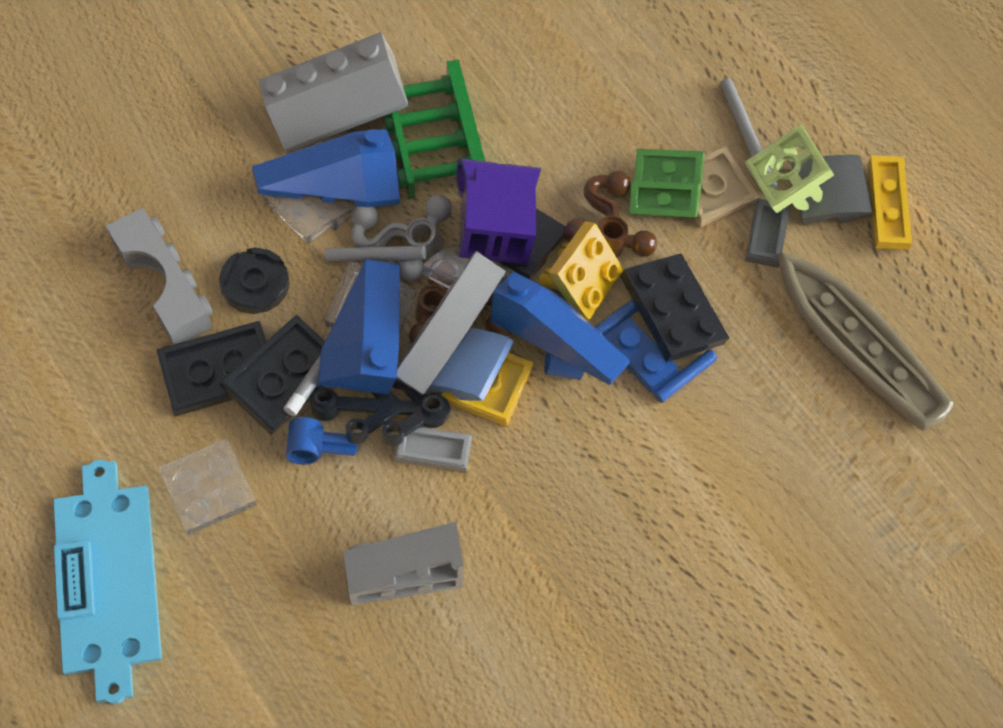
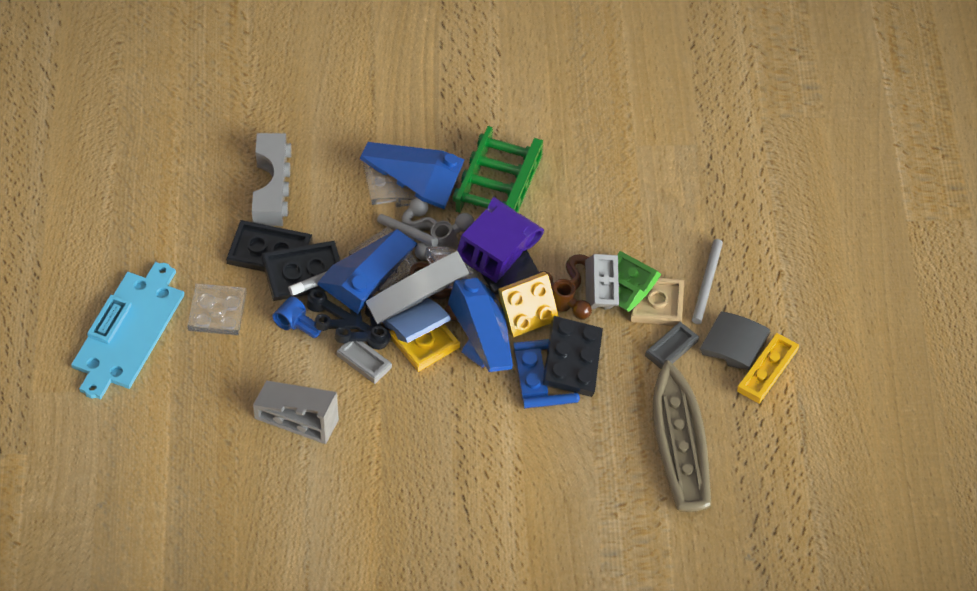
camera: 35 degrees right, 10 degrees down
(254, 280) = (326, 211): black tile -> none
(333, 92) = (449, 121): light grey slope -> none
(646, 197) = (602, 281): none -> light grey hinge
(775, 155) = (714, 299): yellowish green piece -> none

